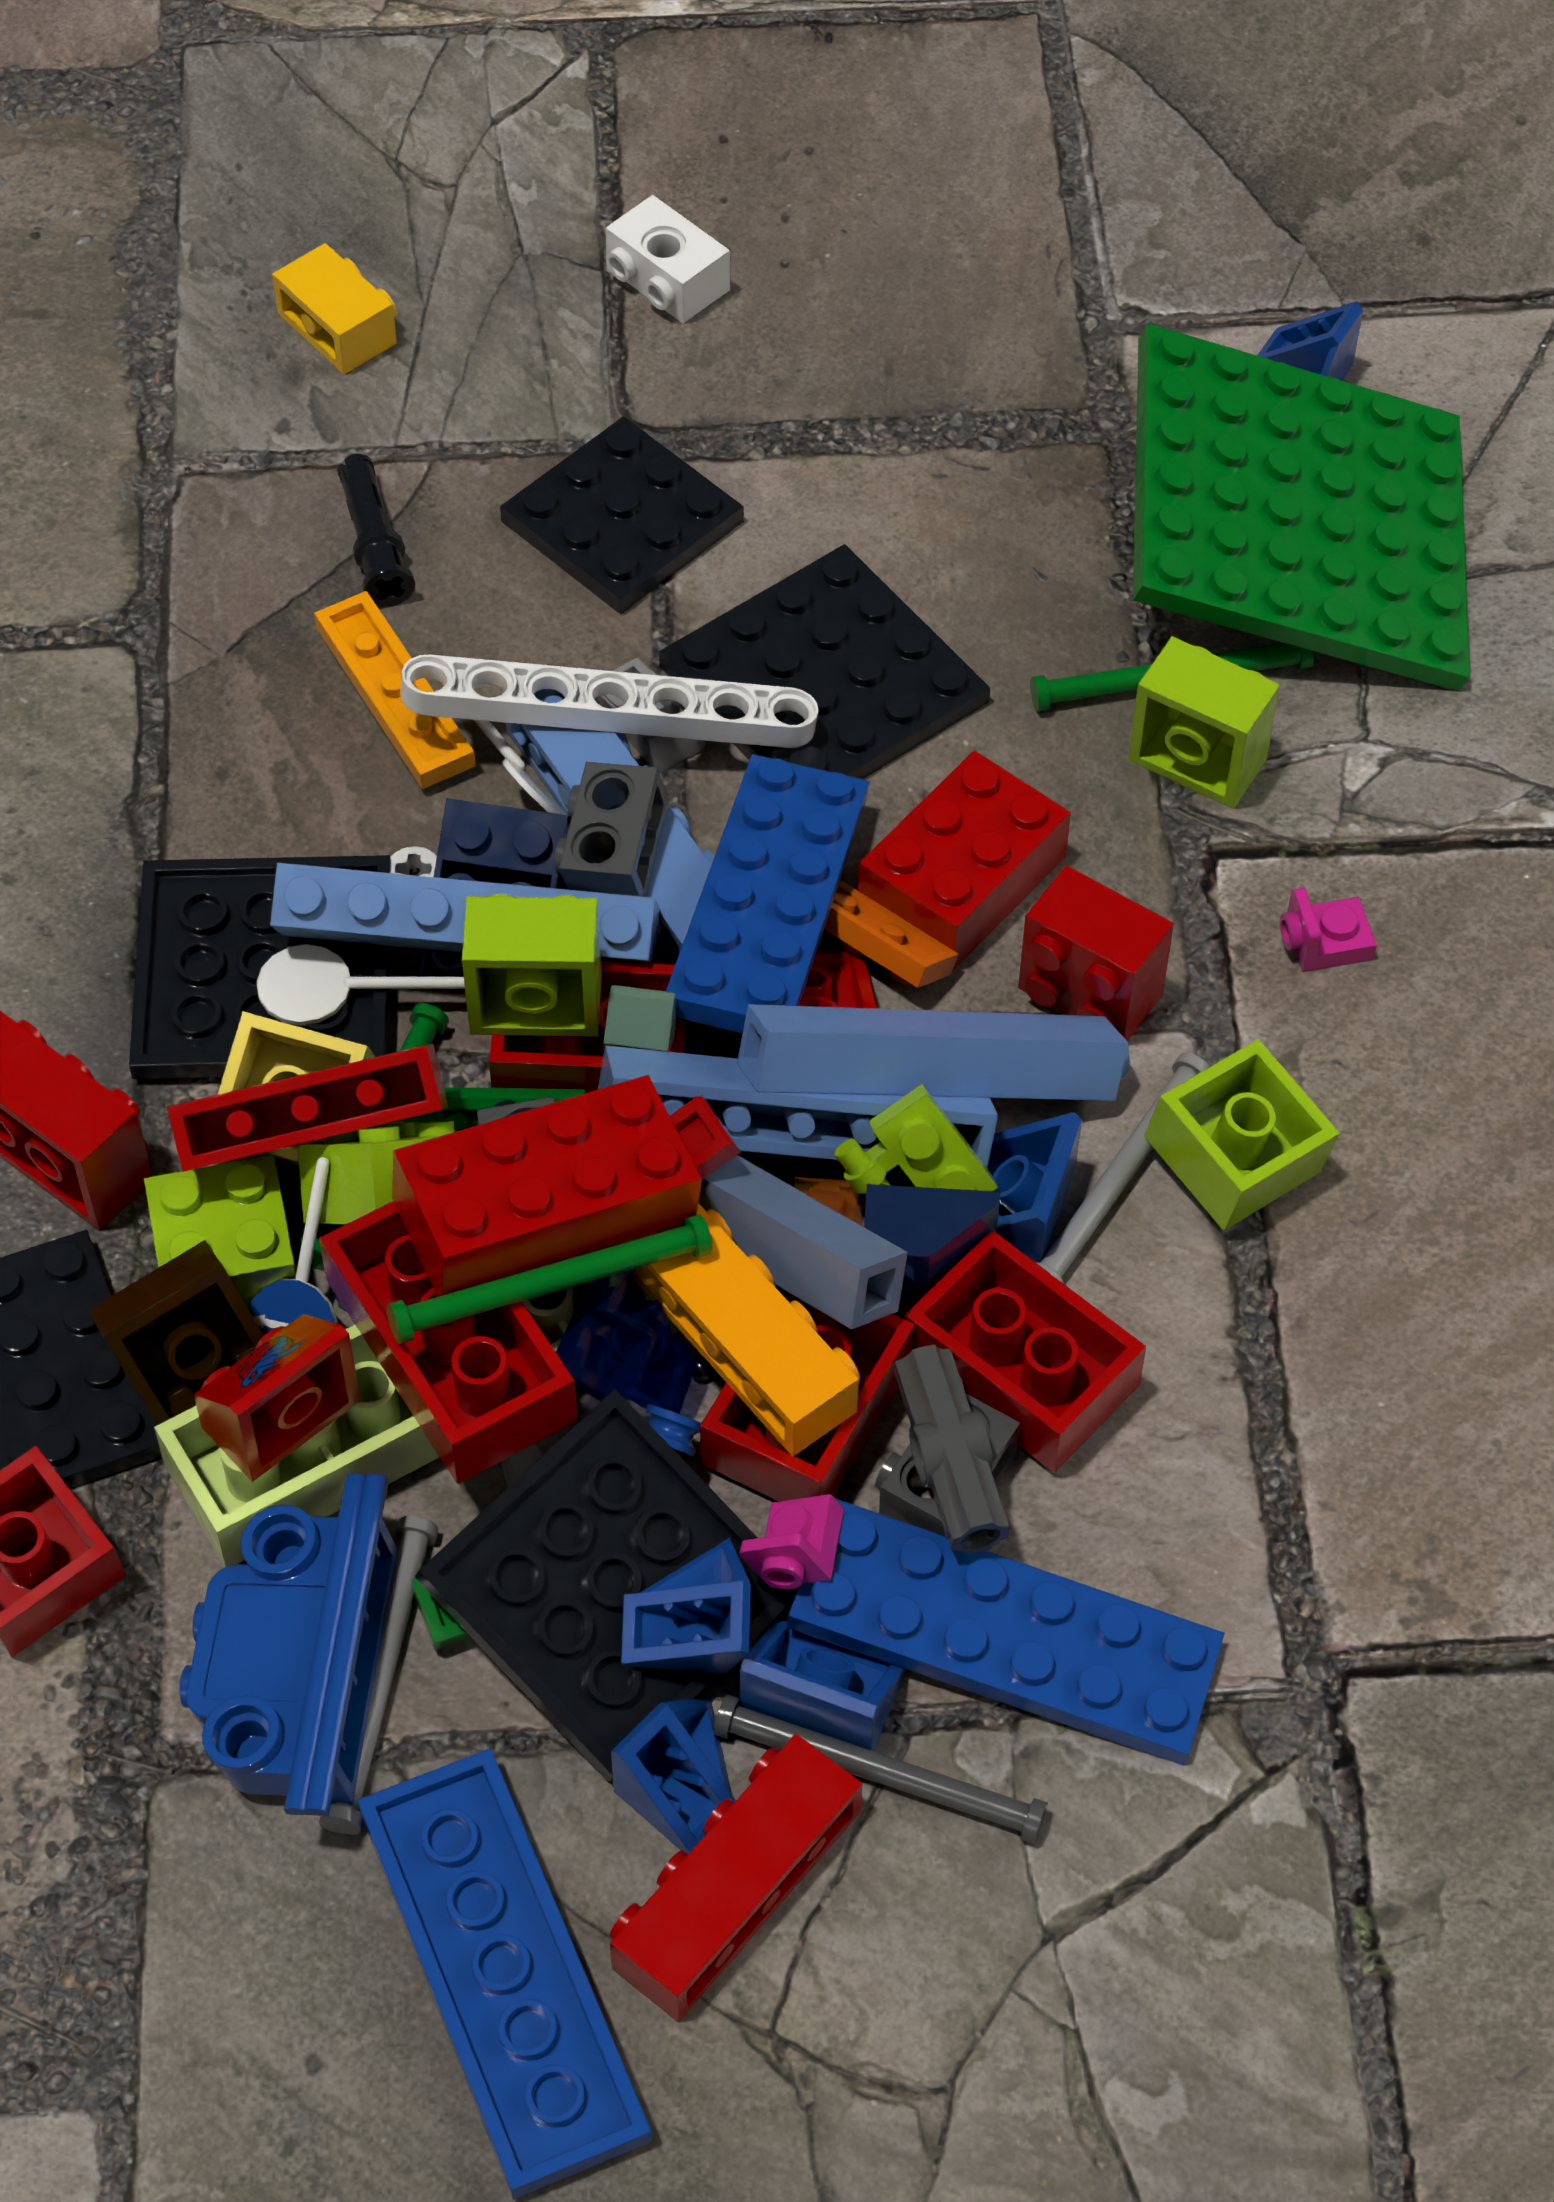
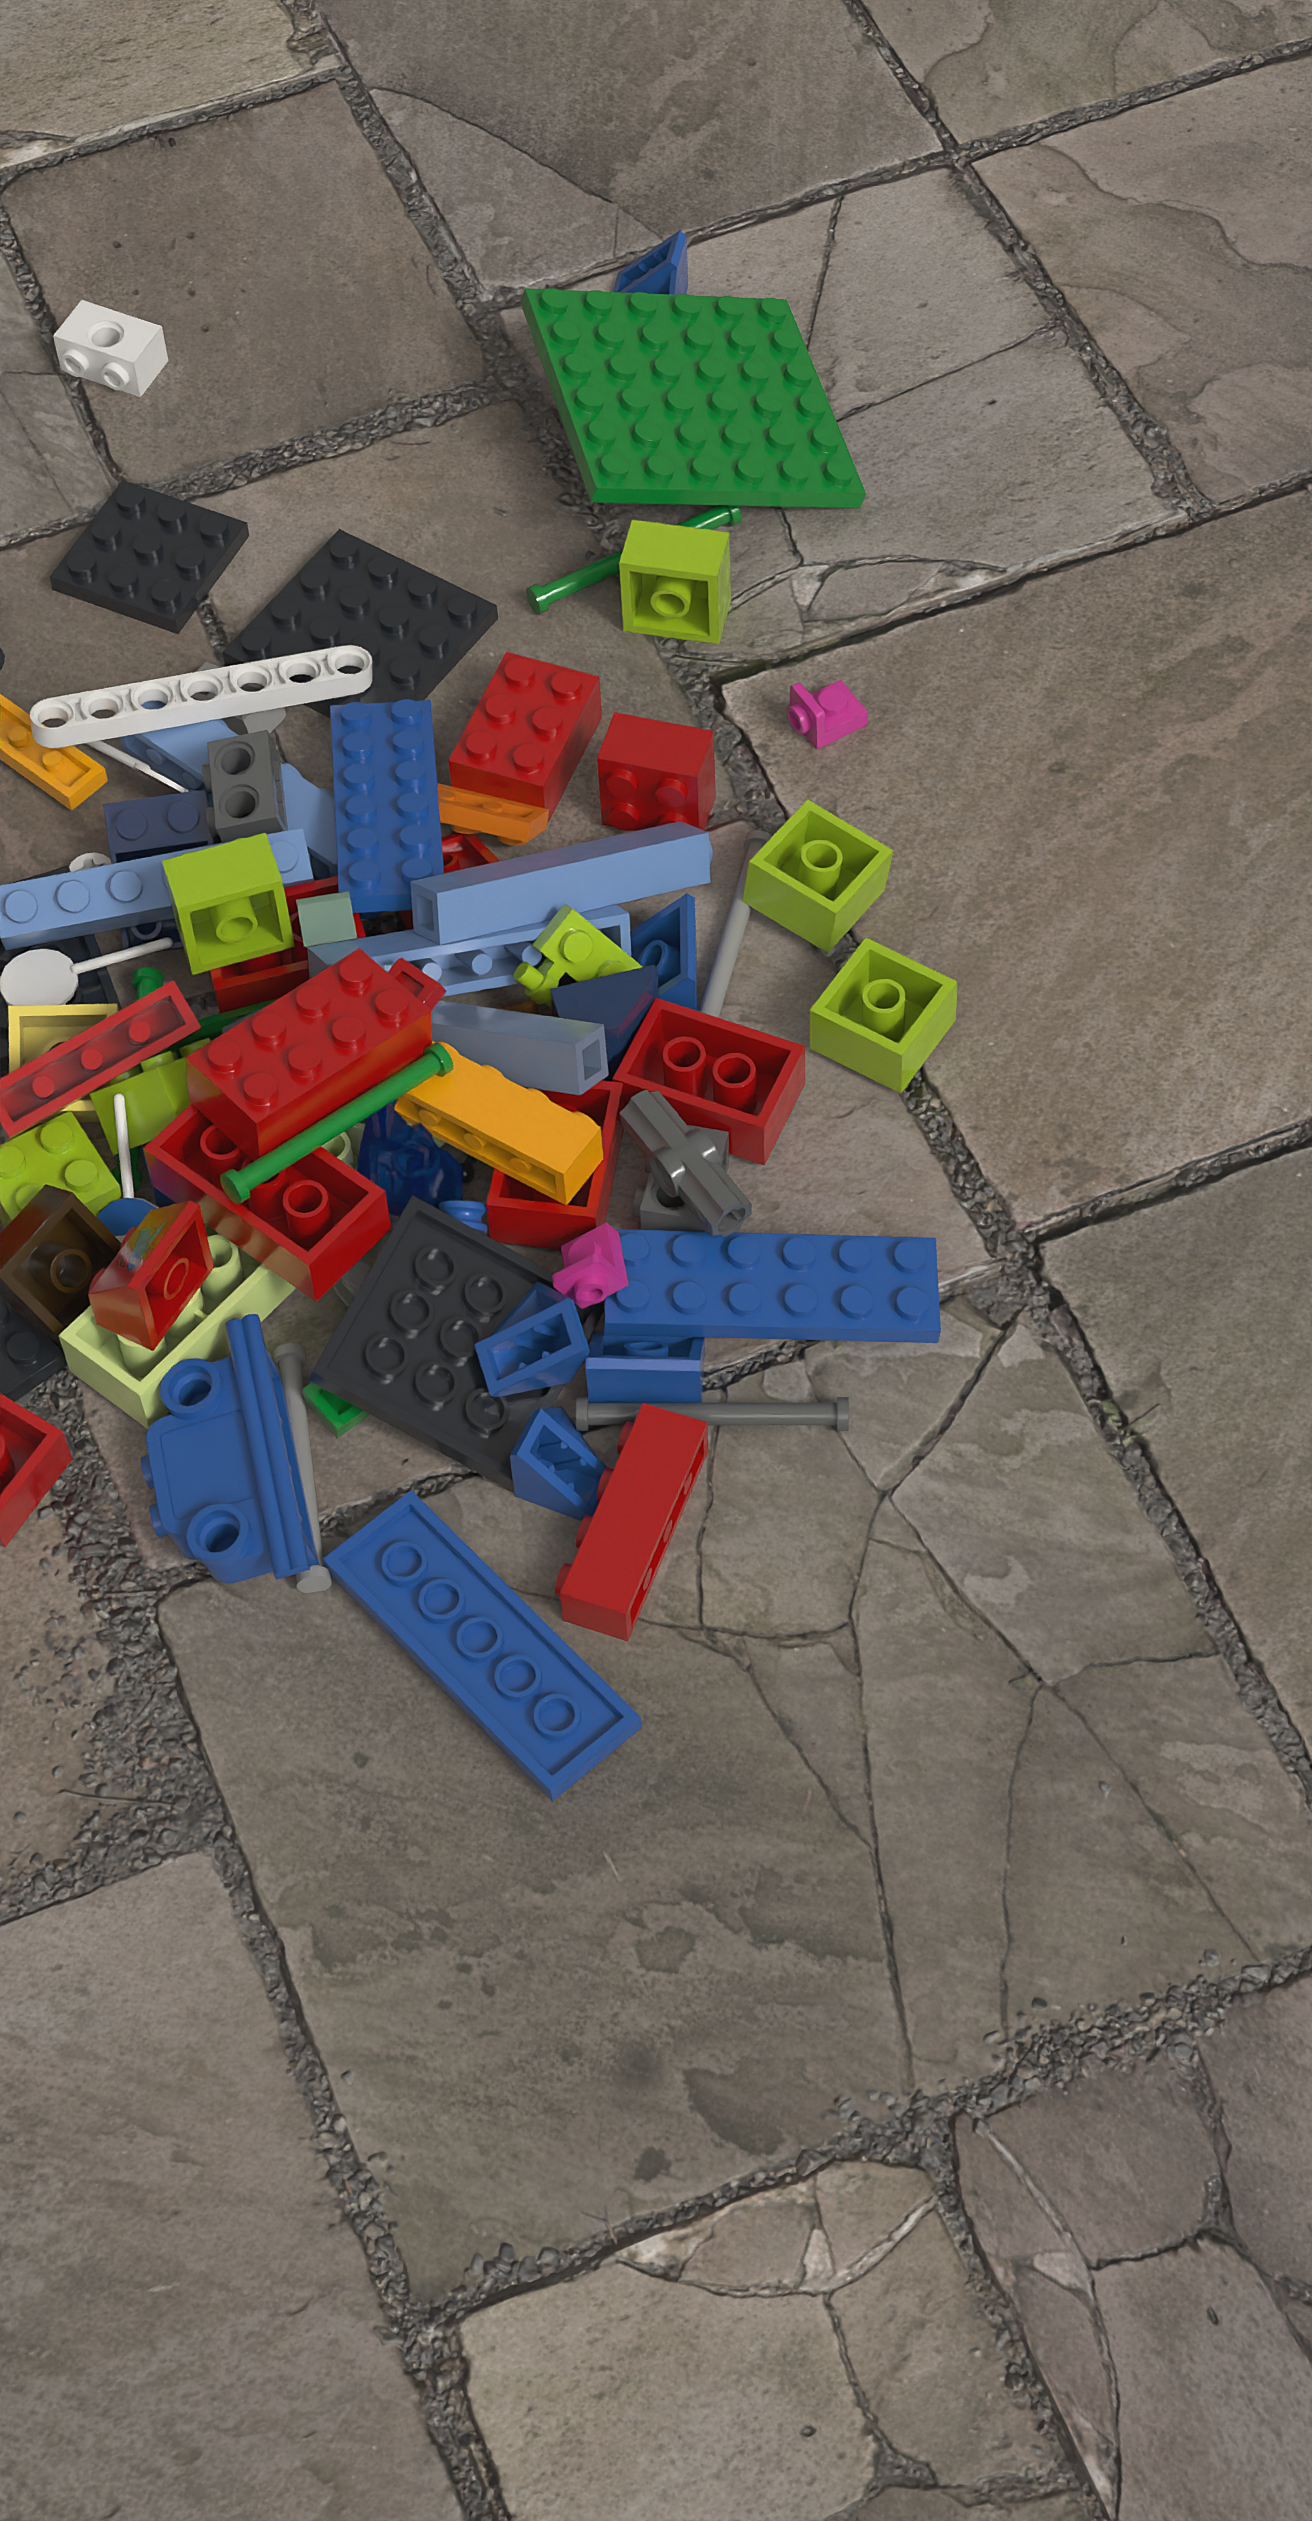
camera: 15 degrees left, 0 degrees up
(1258, 1332) = (883, 1015): none -> lime brick

